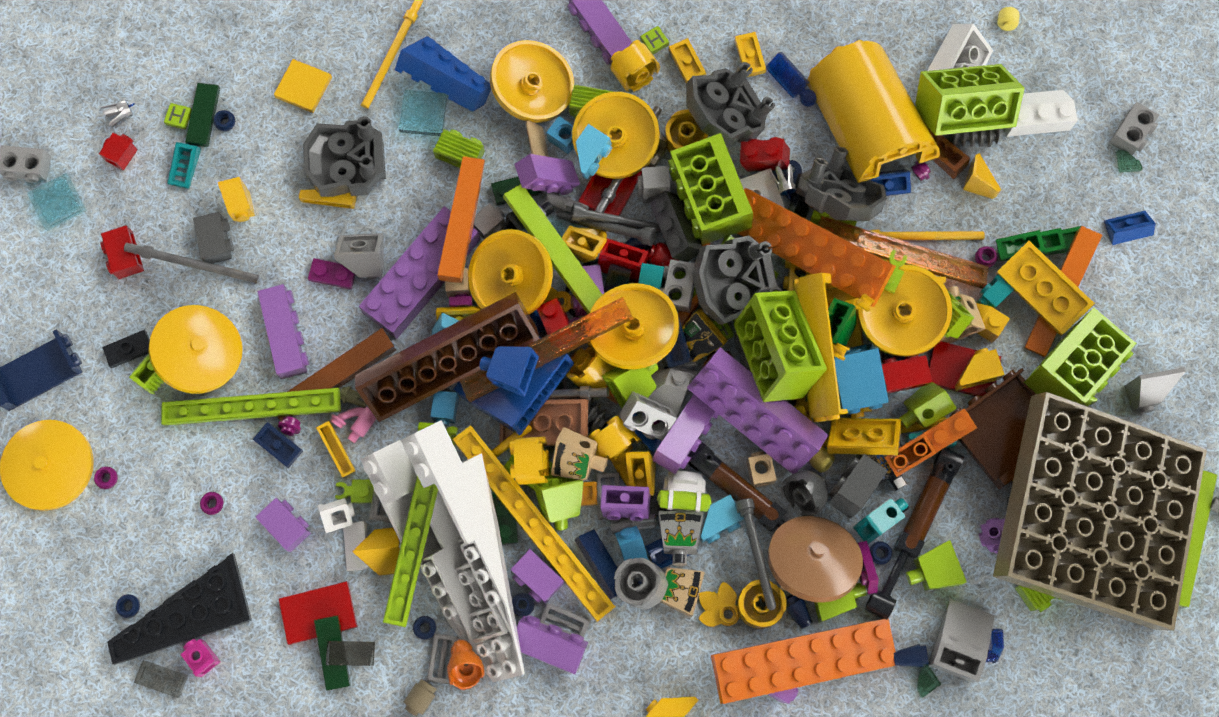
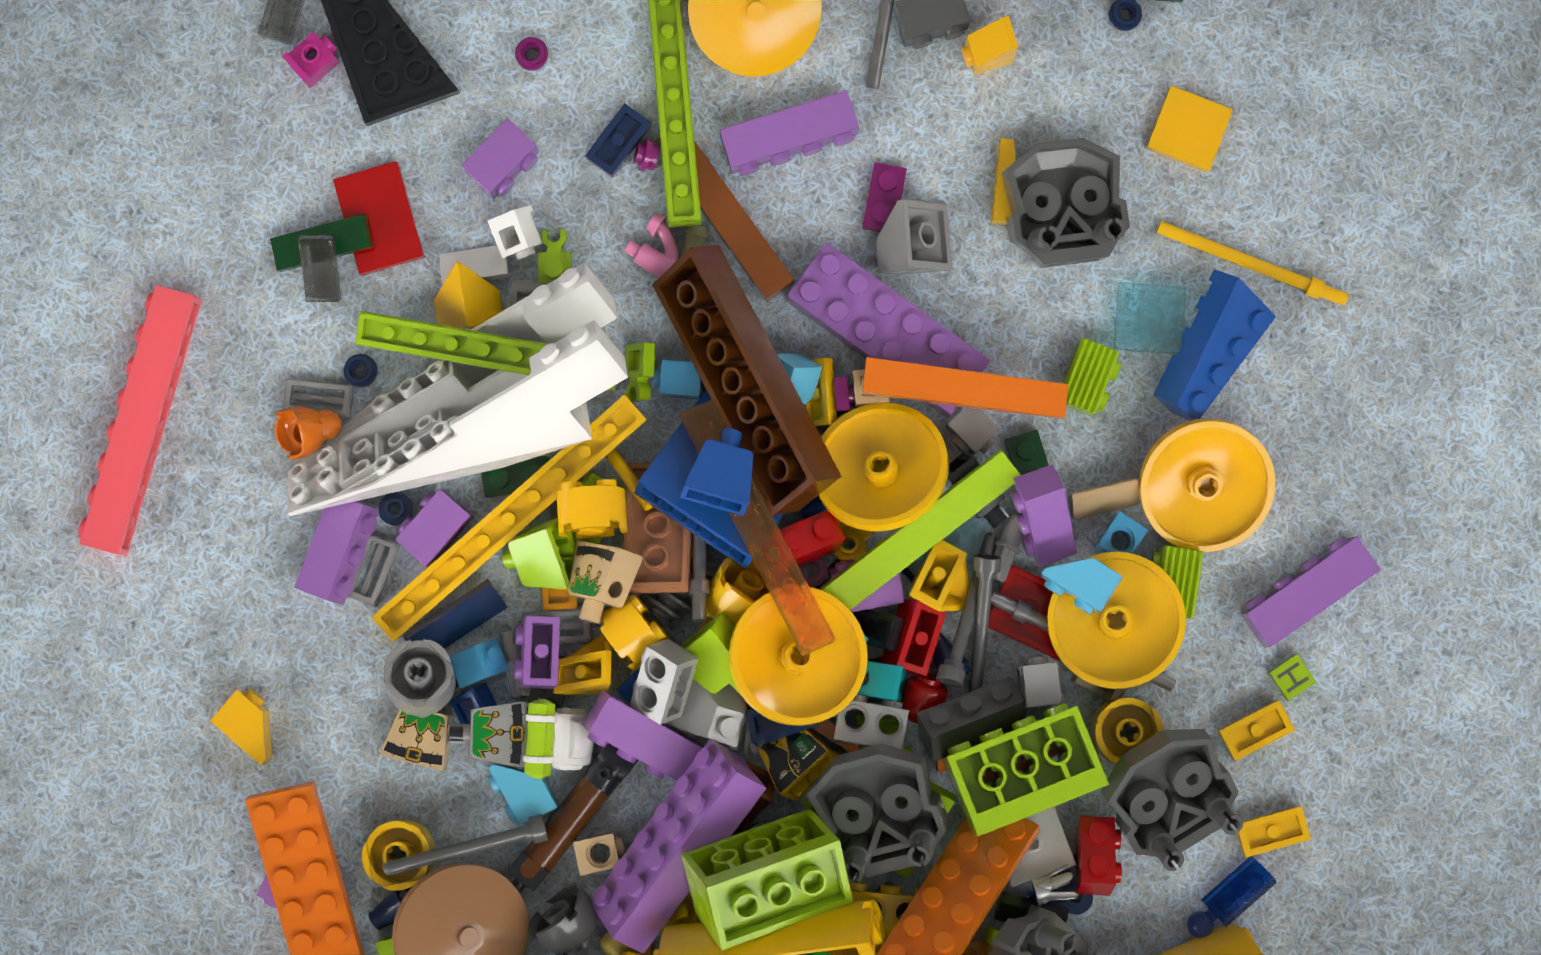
camera: 90 degrees right, 10 degrees up
(336, 449) = (615, 225): yellow piece -> none
(419, 697) = (261, 370): dark tan brick -> none
(634, 66) = (1238, 646): yellow brick -> none
(716, 604) = (402, 789): yellow plate -> none

